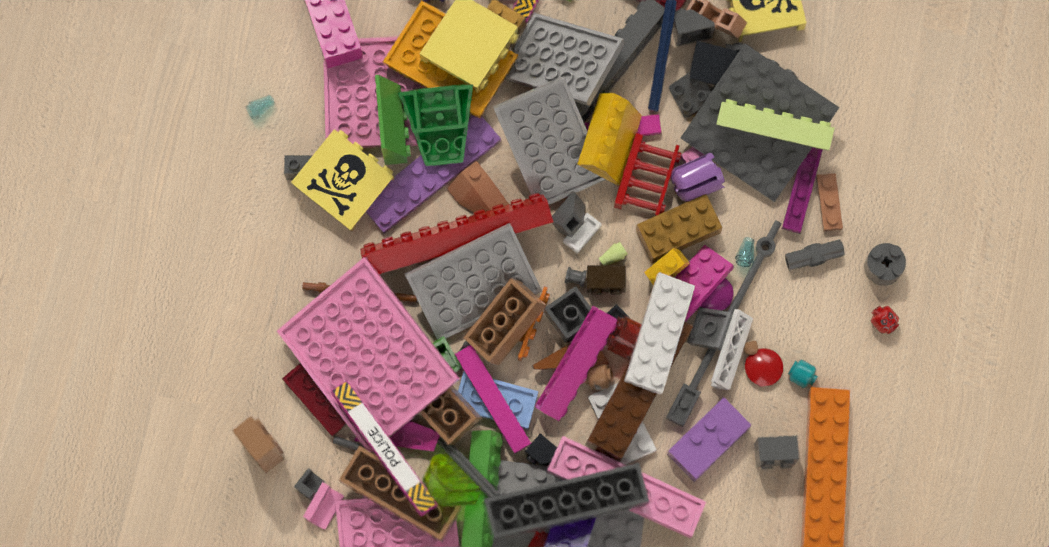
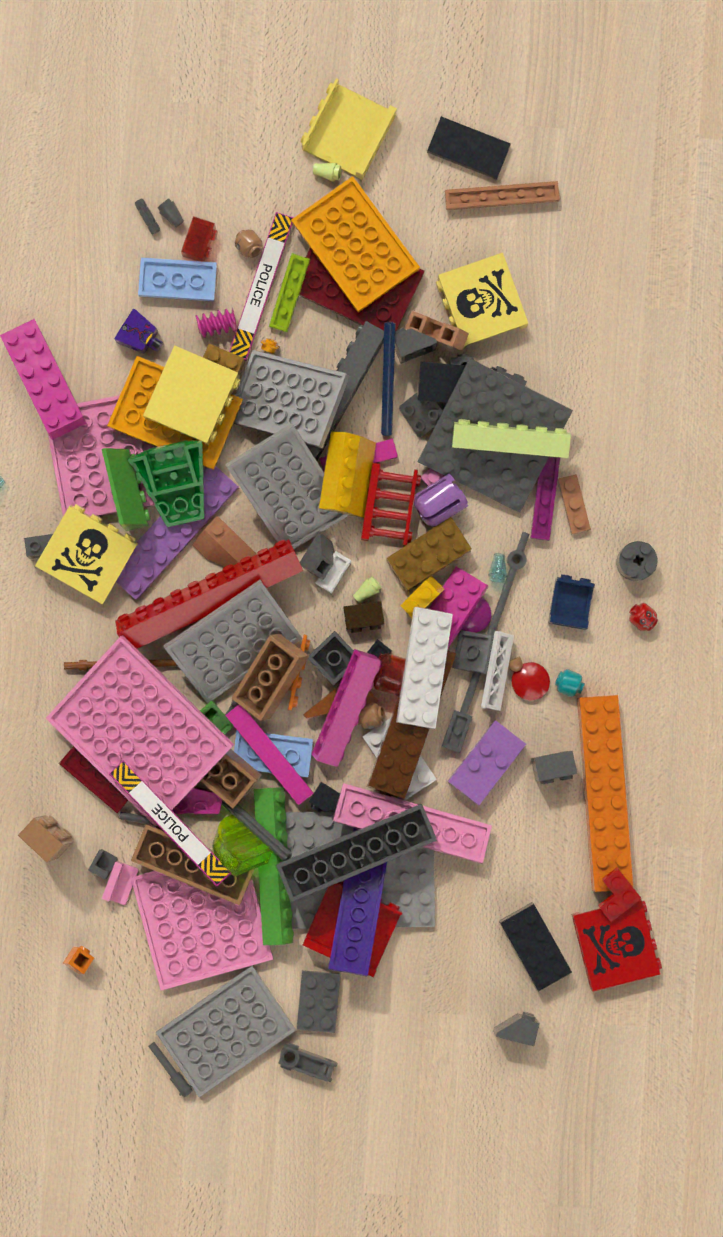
camera: 15 degrees left, 10 degrees up
(551, 11) = (269, 345): none -> light orange plate
(575, 276) = (333, 617): dark grey bush -> none
(814, 254) = (566, 561): dark grey piece -> none
(814, 295) = (571, 602): none -> dark blue panel

